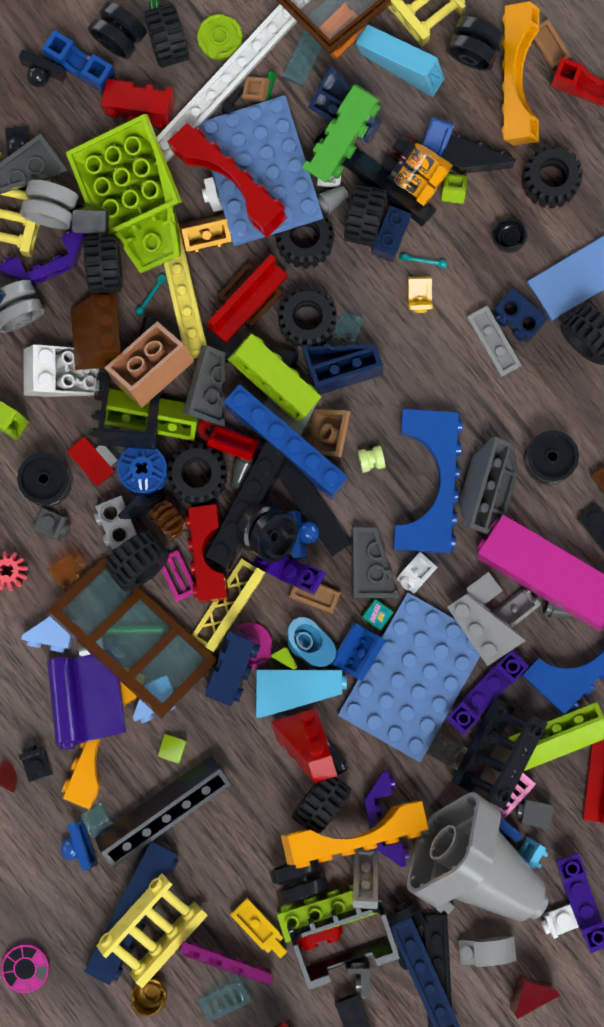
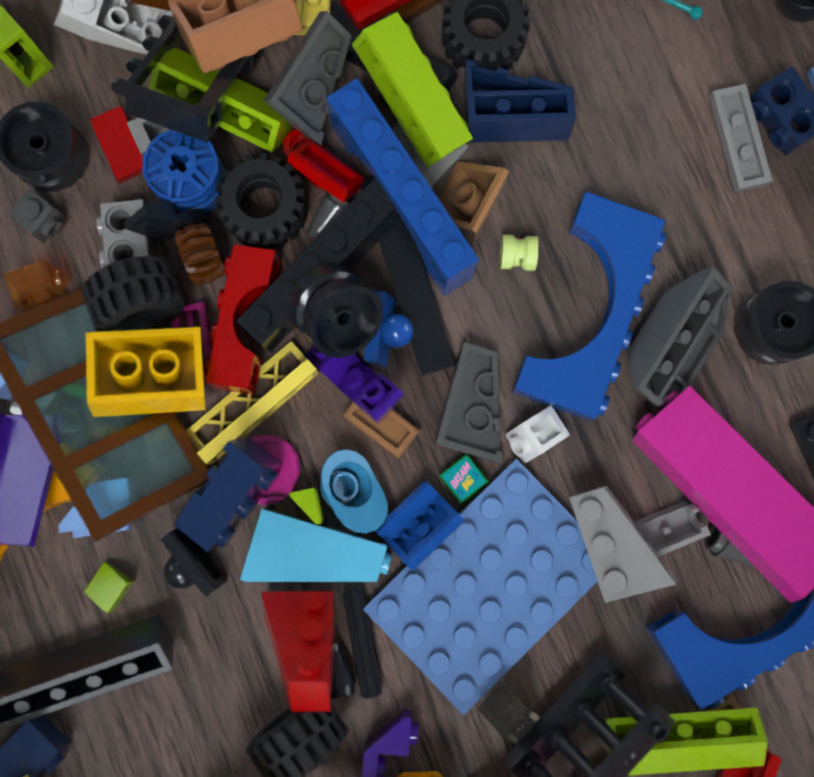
camera: 15 degrees right, 0 degrees up
(160, 604) = (144, 371): none -> yellow brick
(220, 718) = (190, 564): none -> black tile
(343, 737) = (362, 644): none -> black axle
(348, 327) = (540, 60): clear light blue slope -> none
(420, 294) = (654, 40): yellow bracket -> none
(482, 695) = (596, 633): dark purple slope -> none
(484, 589) = (632, 486): light grey panel -> none

